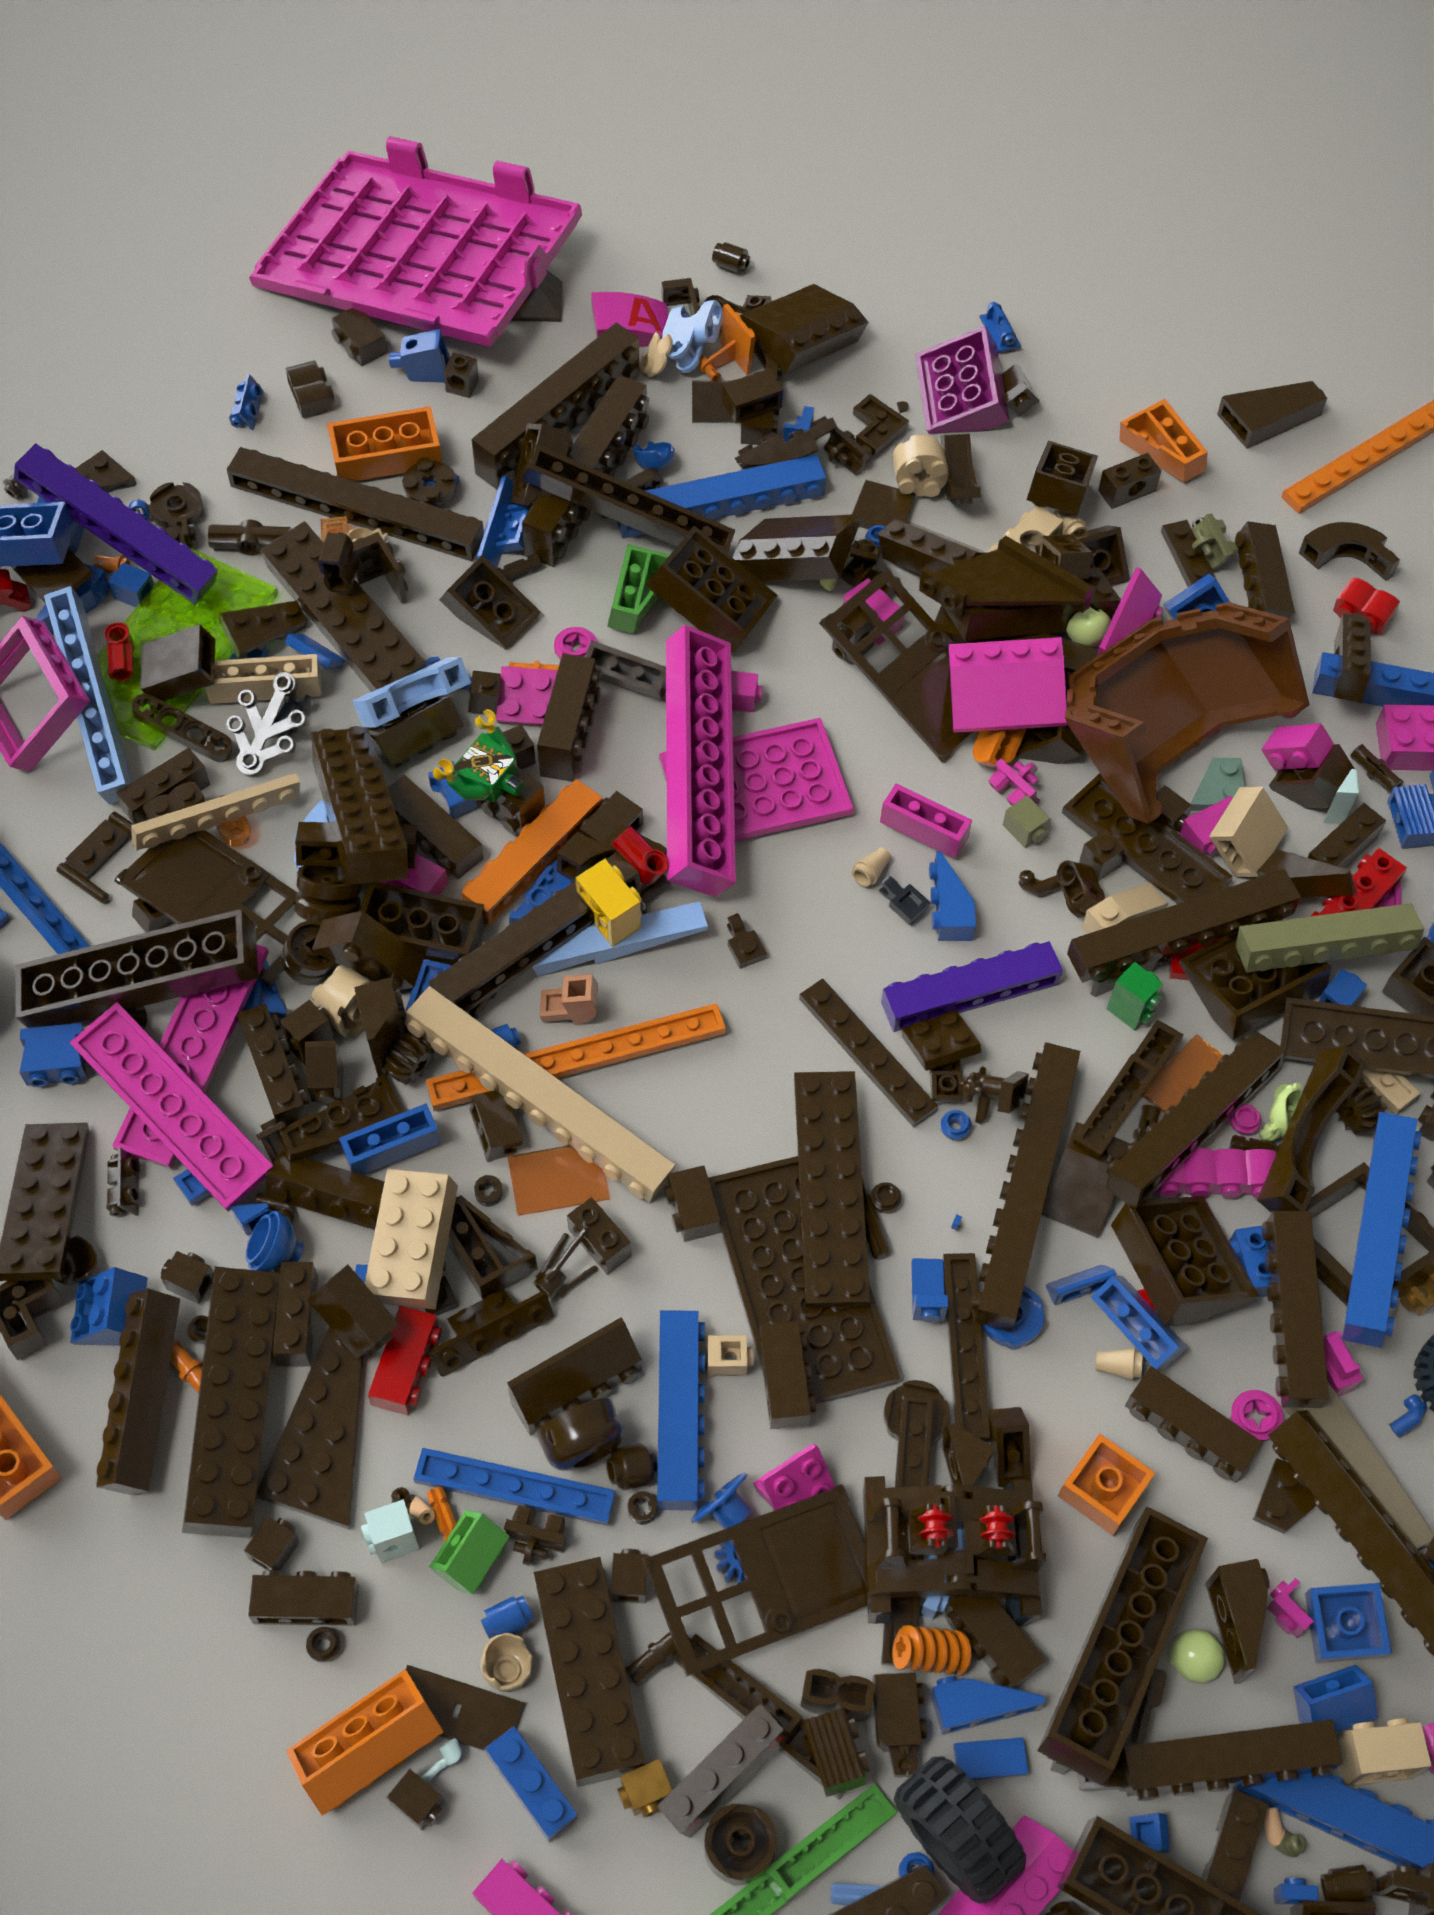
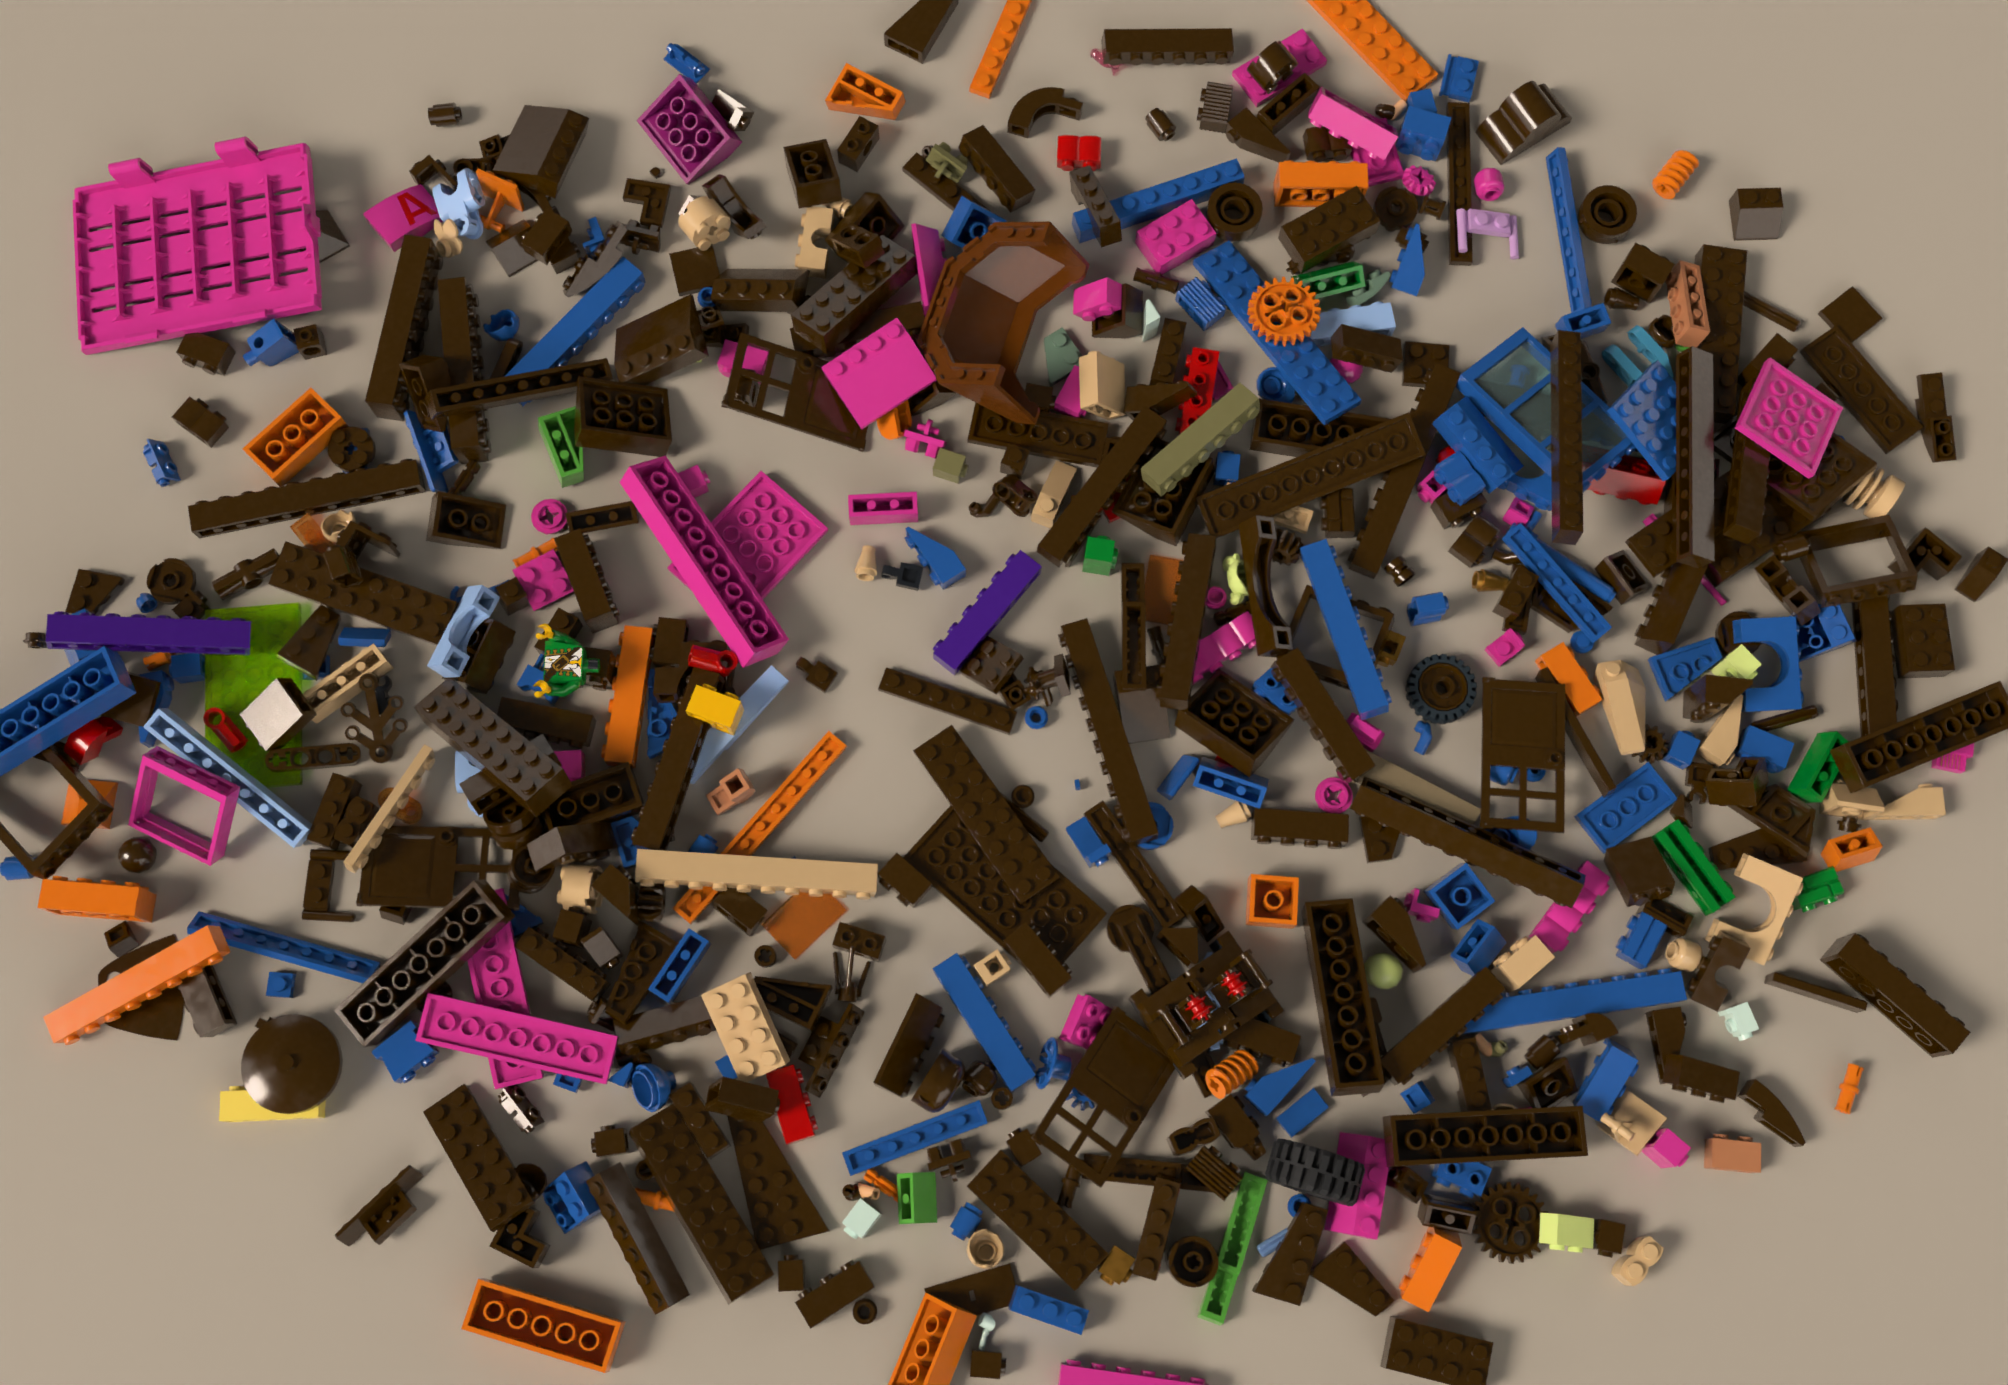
camera: 35 degrees left, 15 degrees up
(1005, 578) = (828, 293): dark brown piece -> none
(1088, 627) = (904, 288): yellowish green hair -> none

